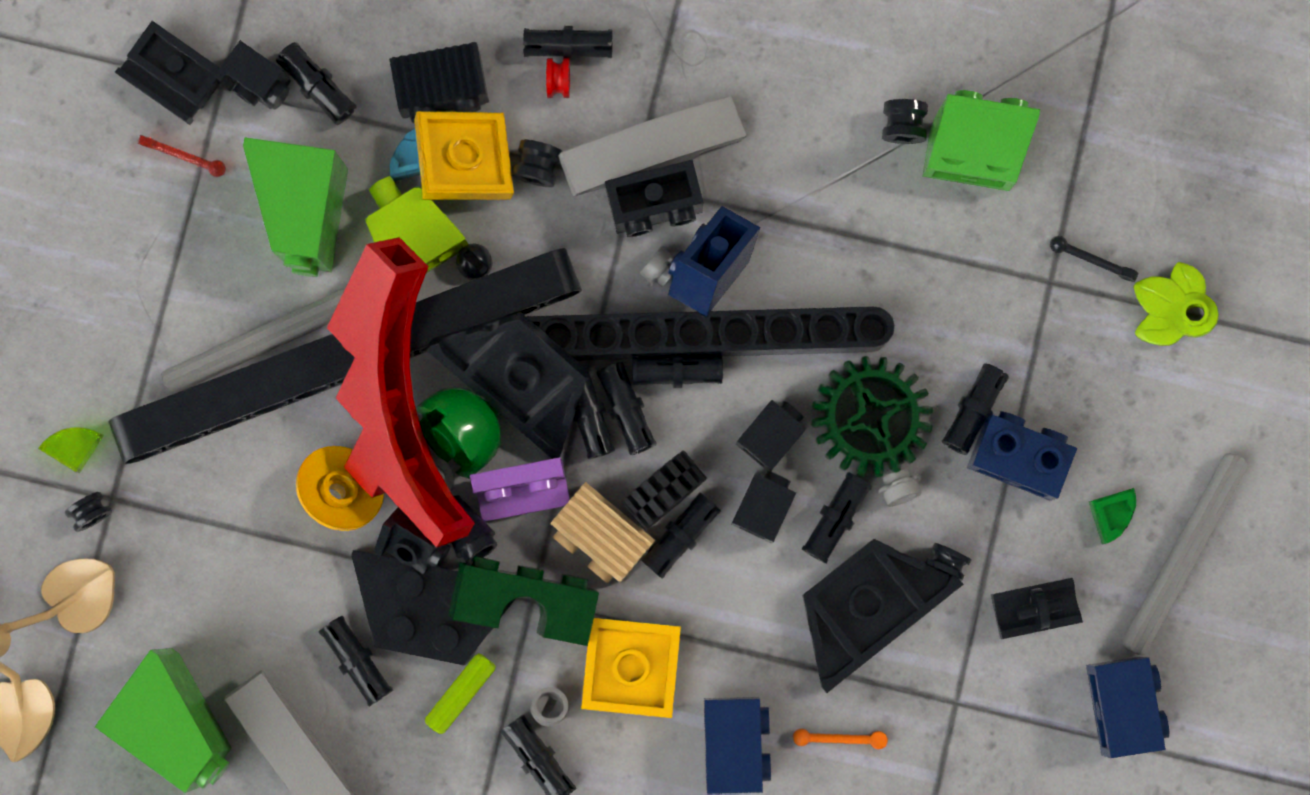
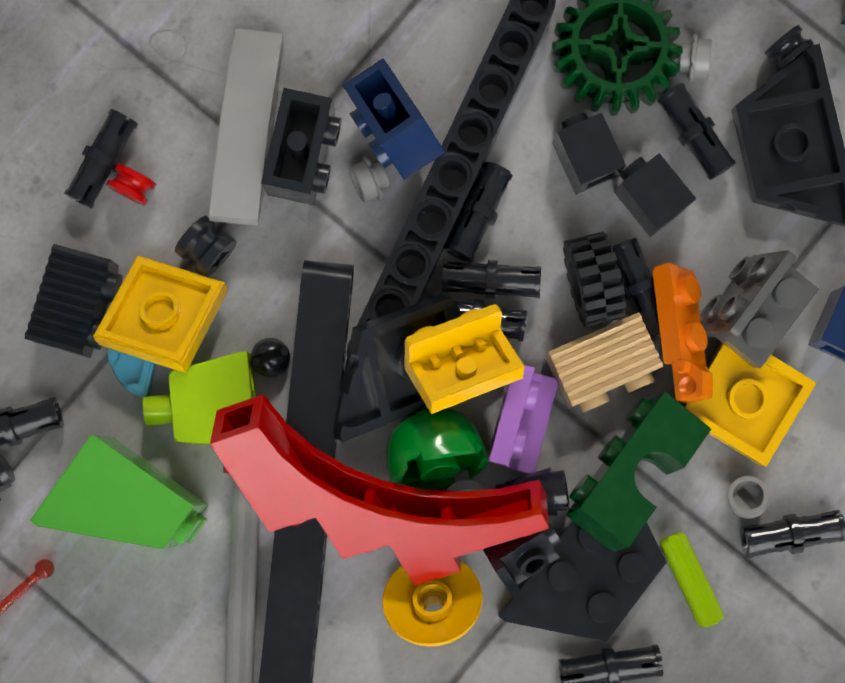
camera: 70 degrees left, 0 degrees up
(538, 411) = (461, 359): none -> yellow bracket
(658, 584) = (682, 332): none -> orange hinge
(709, 637) = (758, 305): none -> dark grey bracket

